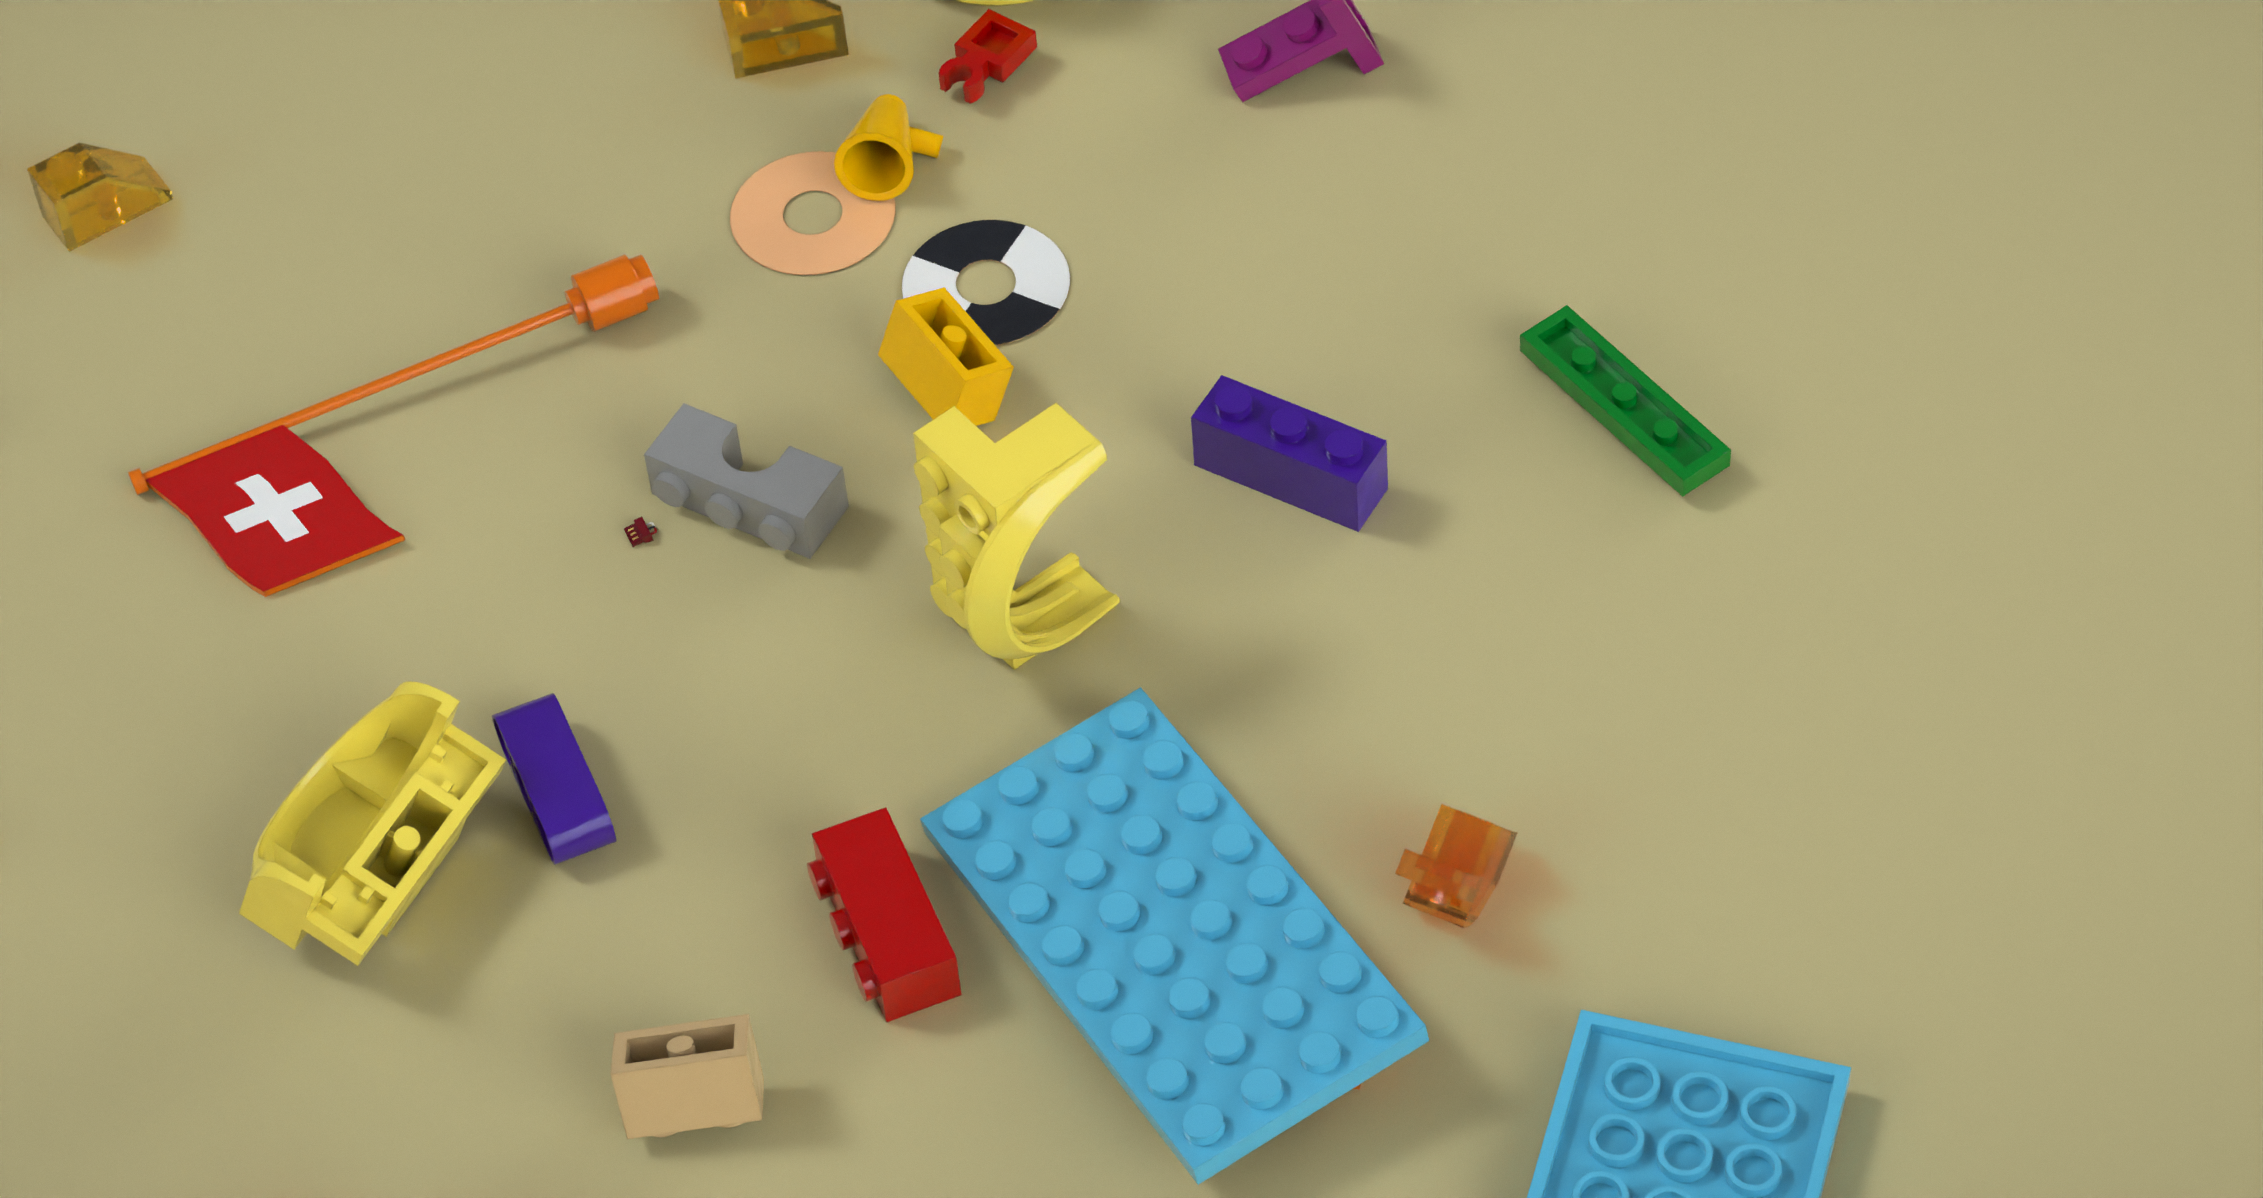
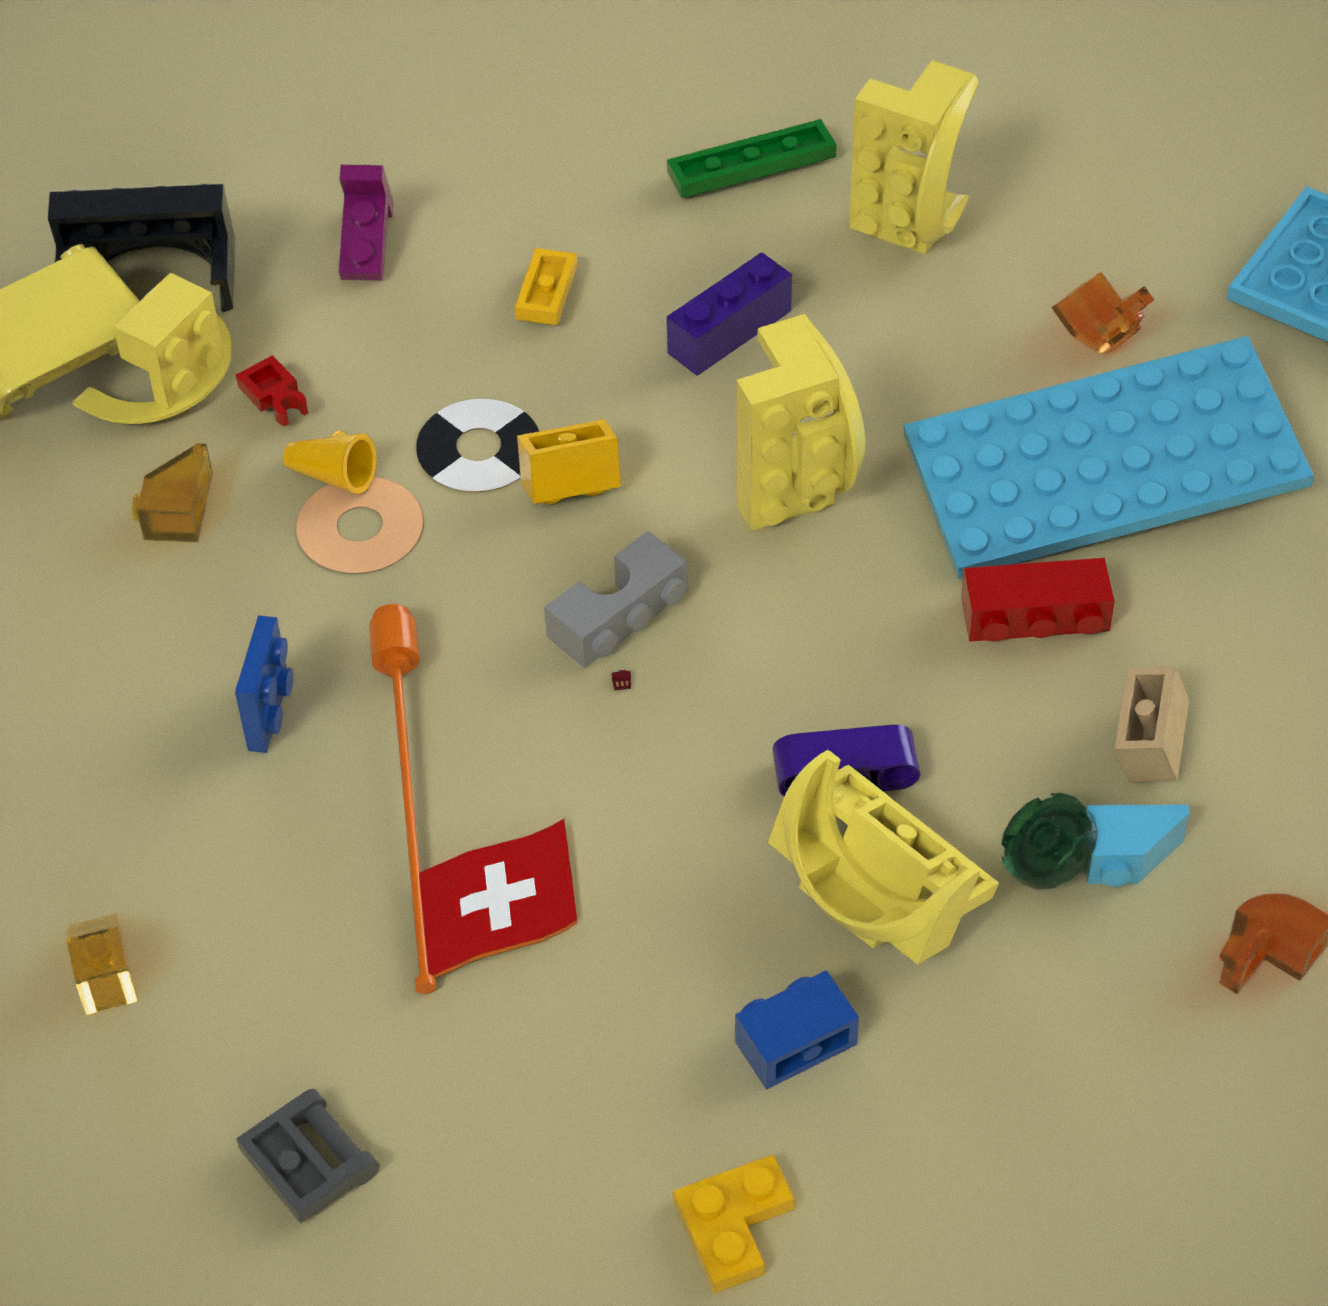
camera: 75 degrees left, 0 degrees up
(138, 828) = (796, 1028): none -> blue brick
(470, 1013) = (1049, 841): none -> clear green tile
(485, 186) = (263, 684): none -> blue plate
(499, 1100) = (1133, 841): none -> medium azure slope
(1276, 256) = (546, 286): none -> yellow plate
(1560, 536) = (896, 191): none -> light yellow piece

